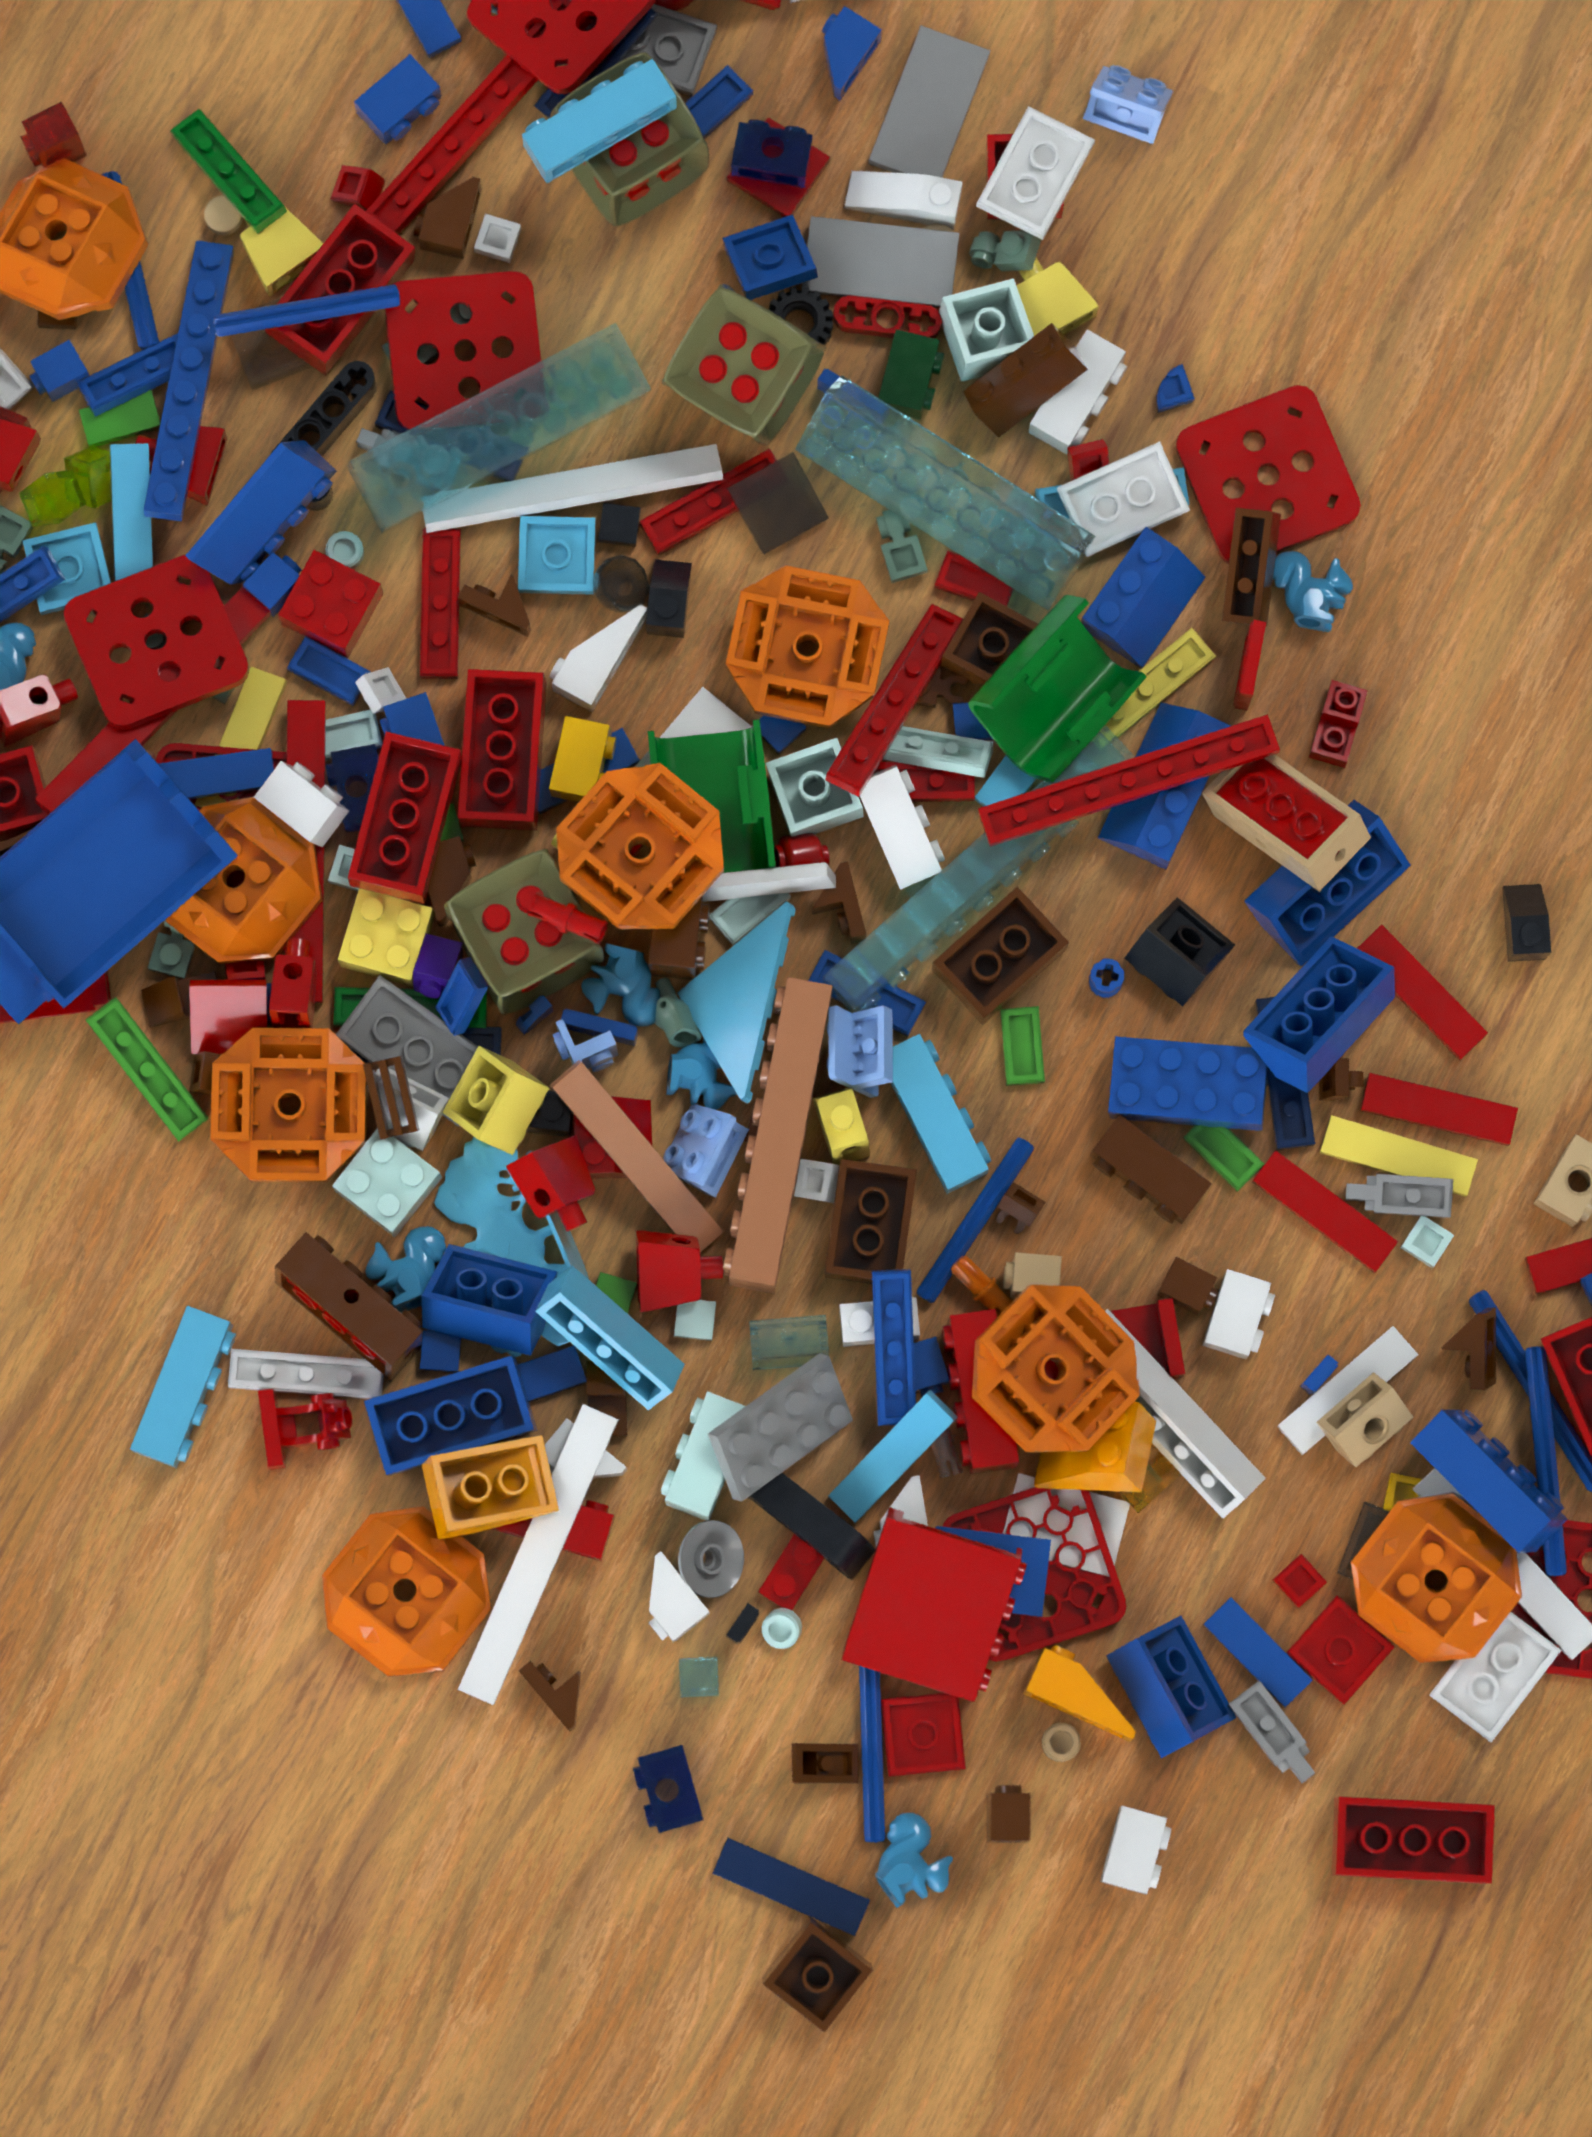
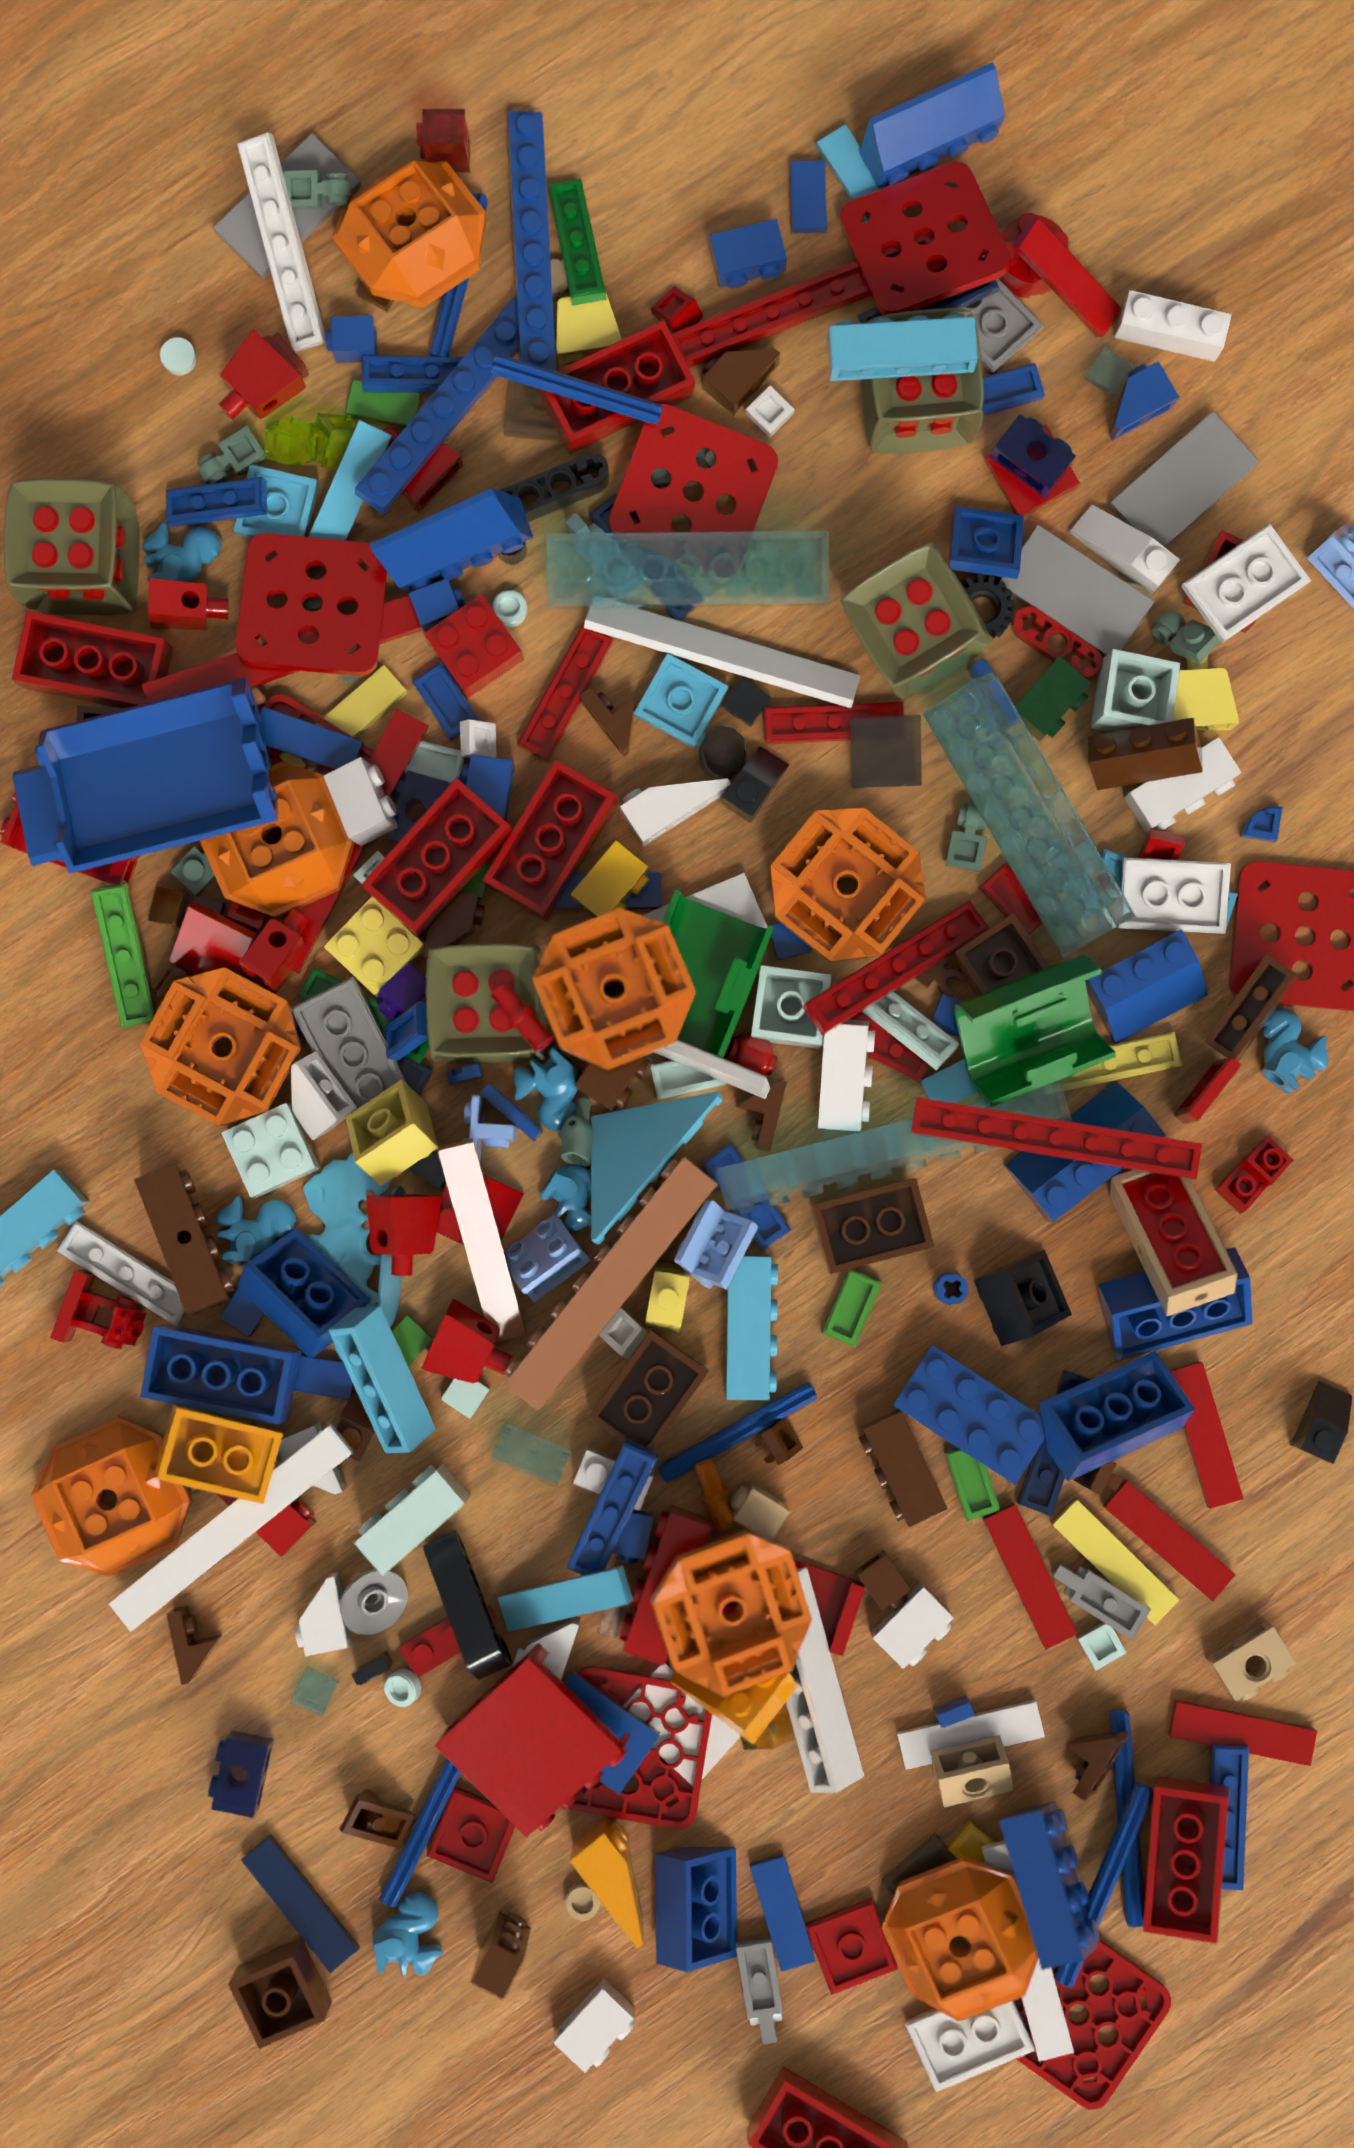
camera: 30 degrees right, 5 degrees up
(183, 190) = (531, 239): none -> blue plate
(398, 1129) = (291, 1084): reddish brown tile -> none
(780, 1427) = (482, 1528): light grey plate -> none
(802, 38) = (1109, 372): none -> clear light blue tile
(1299, 1581) = (848, 1871): red tile -> none

